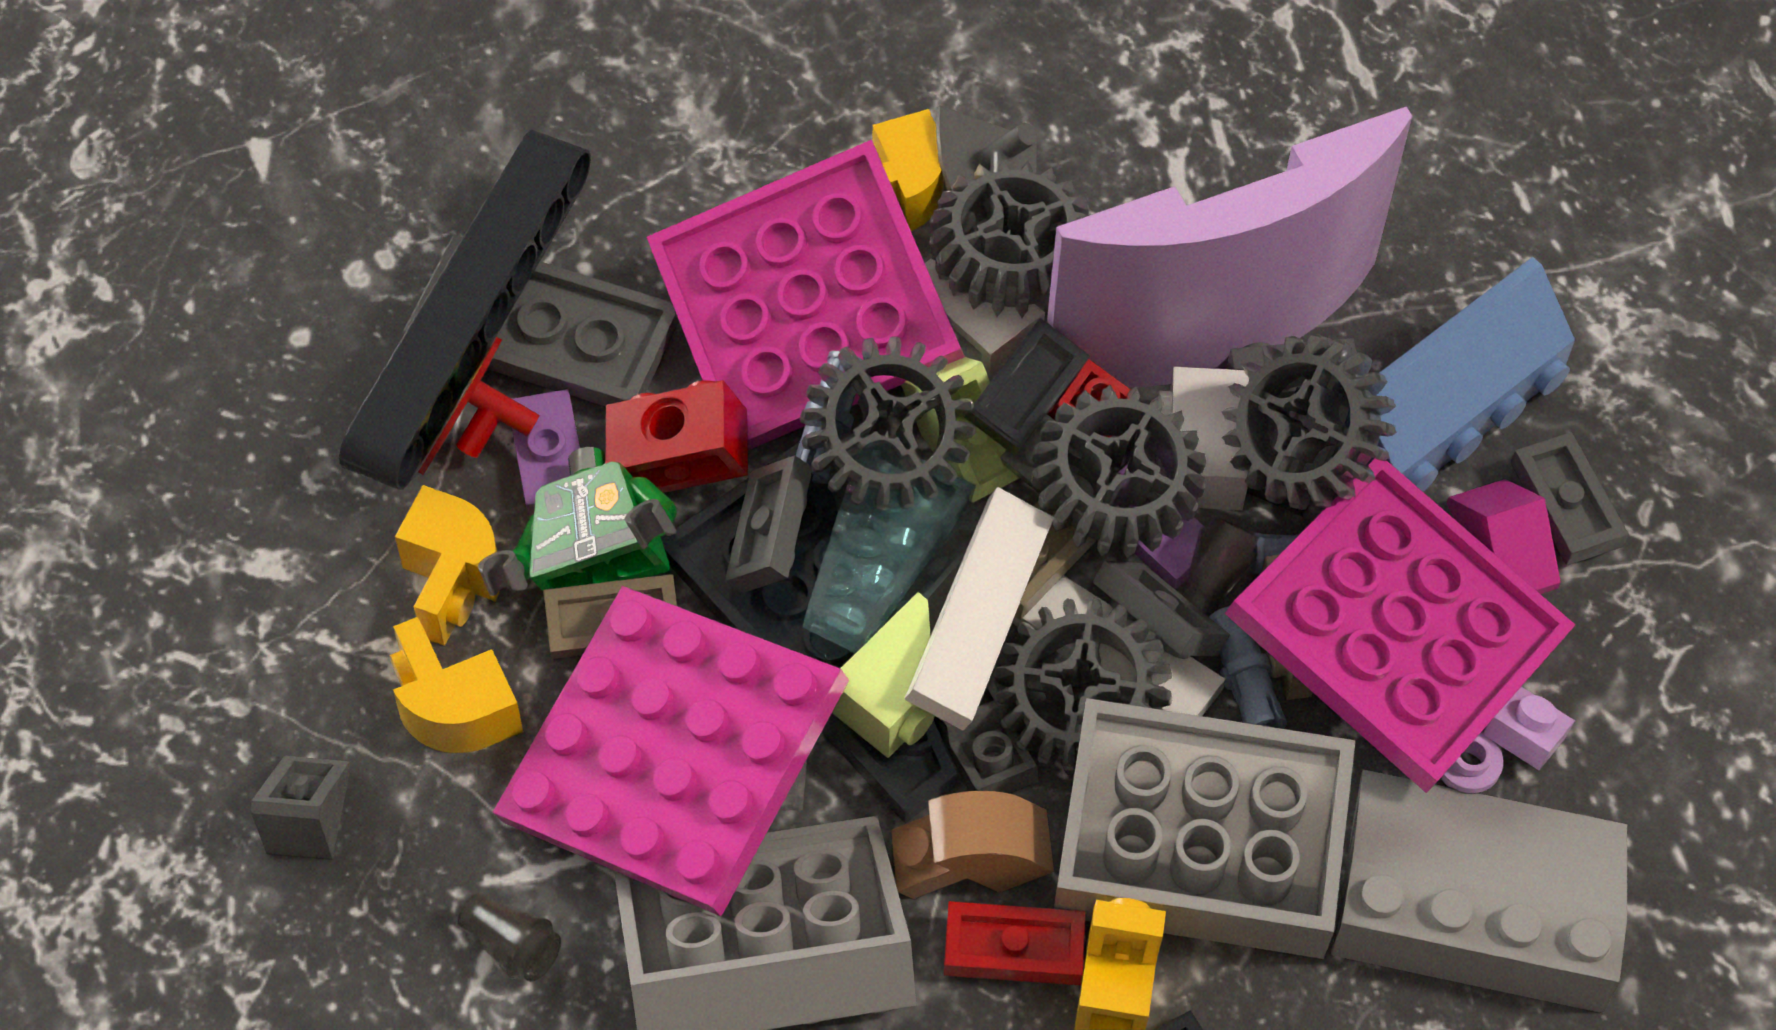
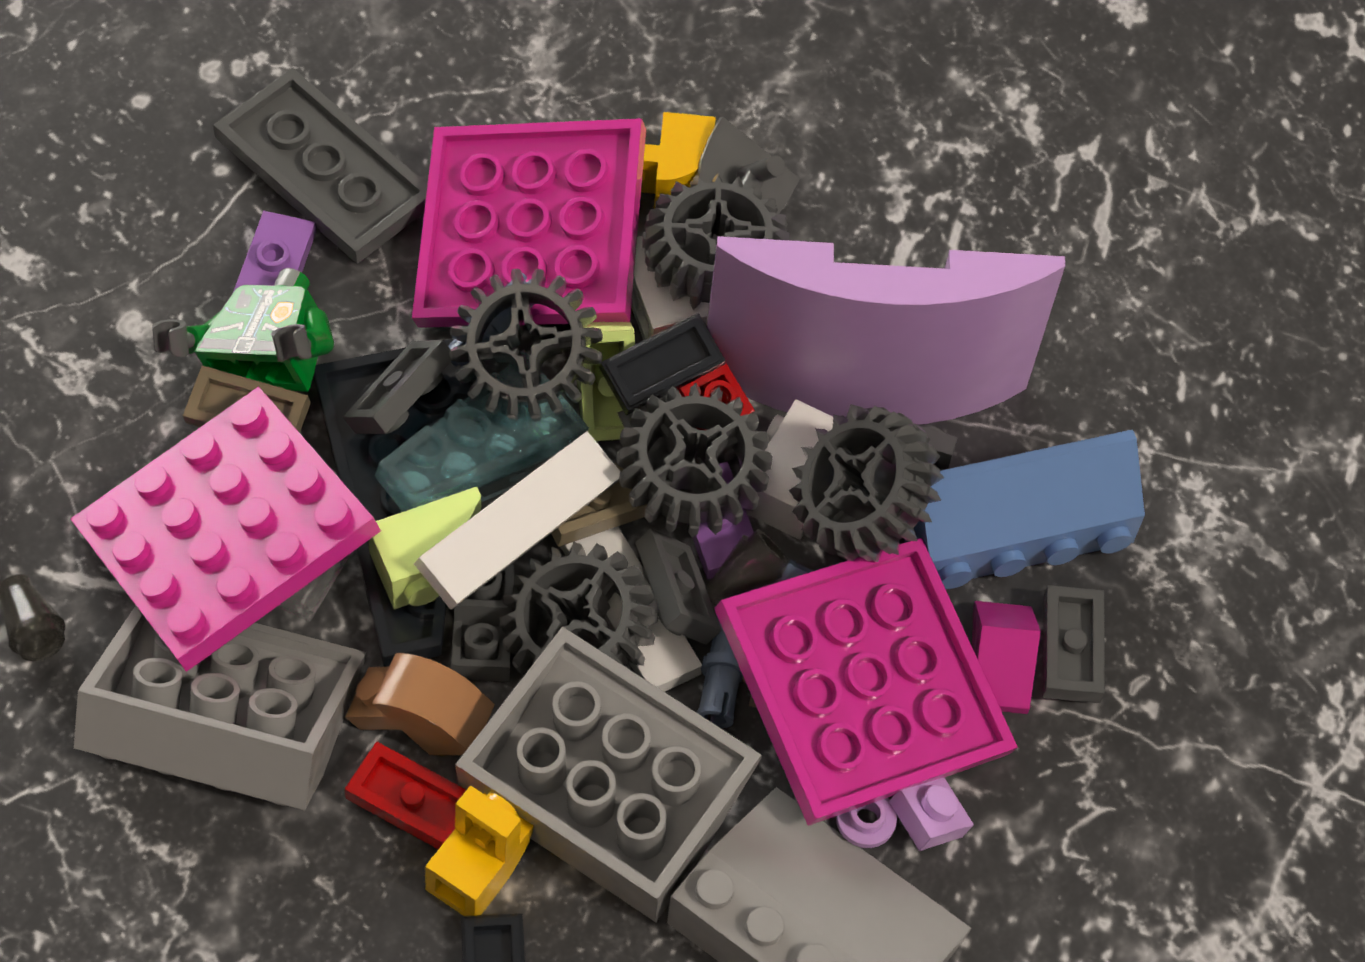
camera: 20 degrees right, 0 degrees up
(446, 543) = (145, 293): yellow brick -> none
(453, 706) = (90, 425): yellow brick -> none
(464, 311) = (262, 126): black beam -> none
(491, 408) = (243, 210): red shield -> none
(680, 436) = (372, 292): red brick -> none

